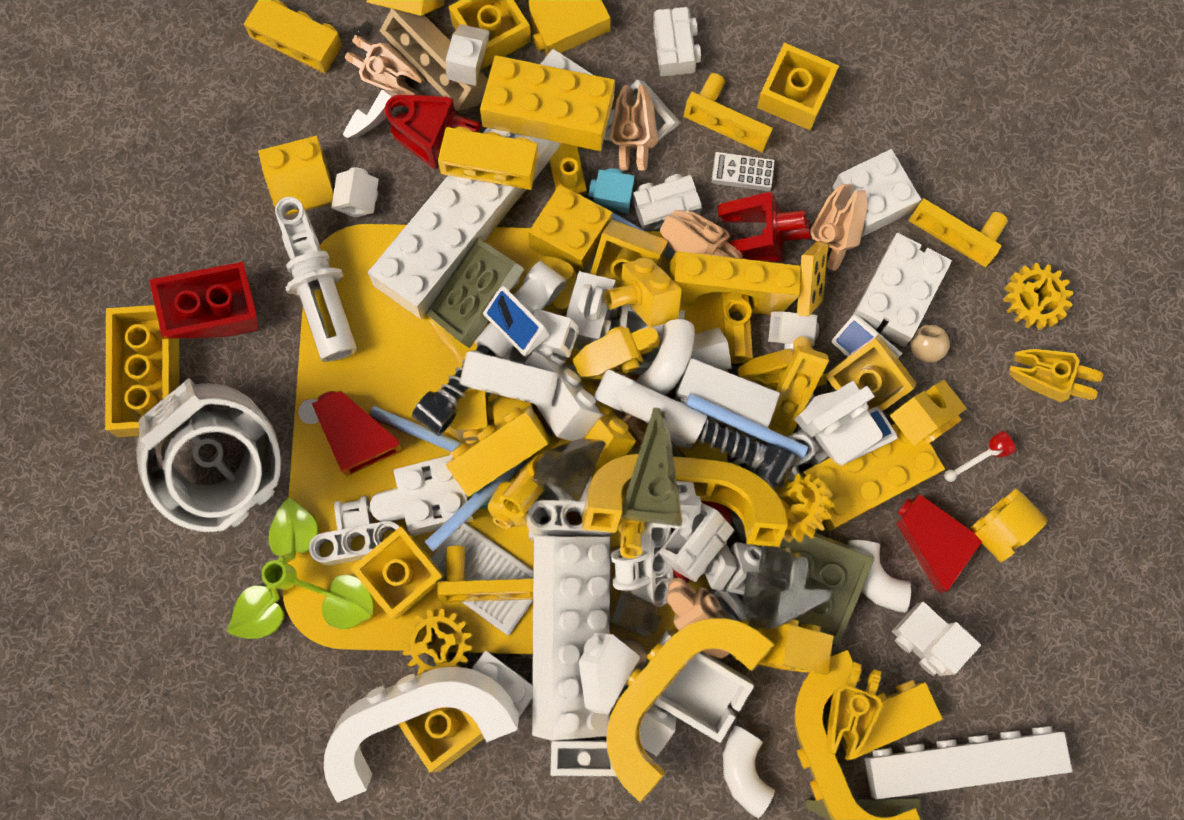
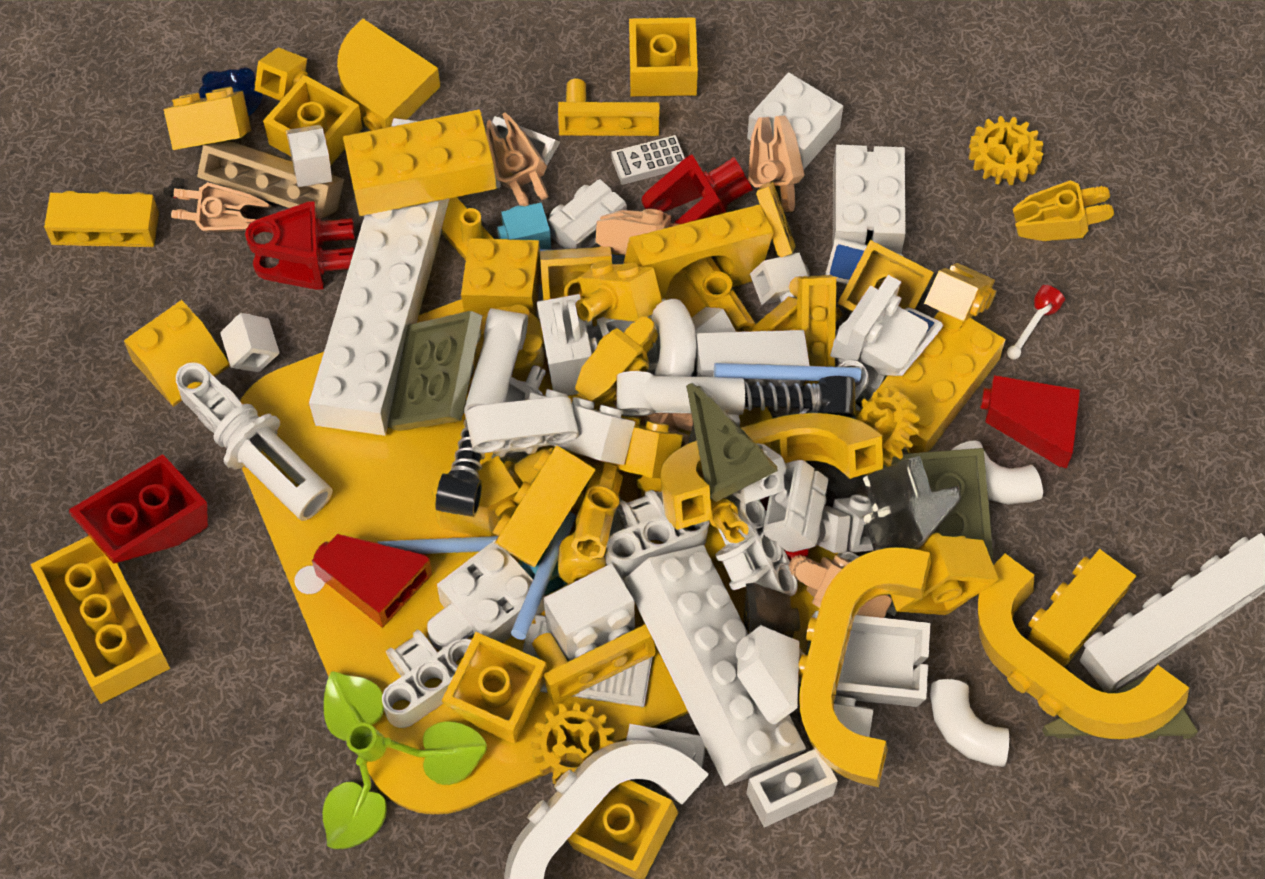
camera: 25 degrees left, 15 degrees down
(182, 418) = (190, 671): white piece -> none
(366, 119) = (224, 268): white slope -> none
(488, 157) = (384, 237): yellow brick -> none
(495, 551) = (590, 612): none -> white brick
(515, 322) = (500, 365): slope -> none
(561, 333) = (541, 366): white brick -> none
(568, 468) = (629, 486): clear smoke slope -> none
(675, 41) = (515, 66): white brick -> none
(853, 712) = (1044, 602): yellow hinge -> none
(930, 343) = (925, 236): tan piece -> none
(938, 644) = (1087, 509): white brick -> none
(960, 236) = (894, 126): yellow piece -> none
(1009, 525) = (1097, 364): yellow brick -> none

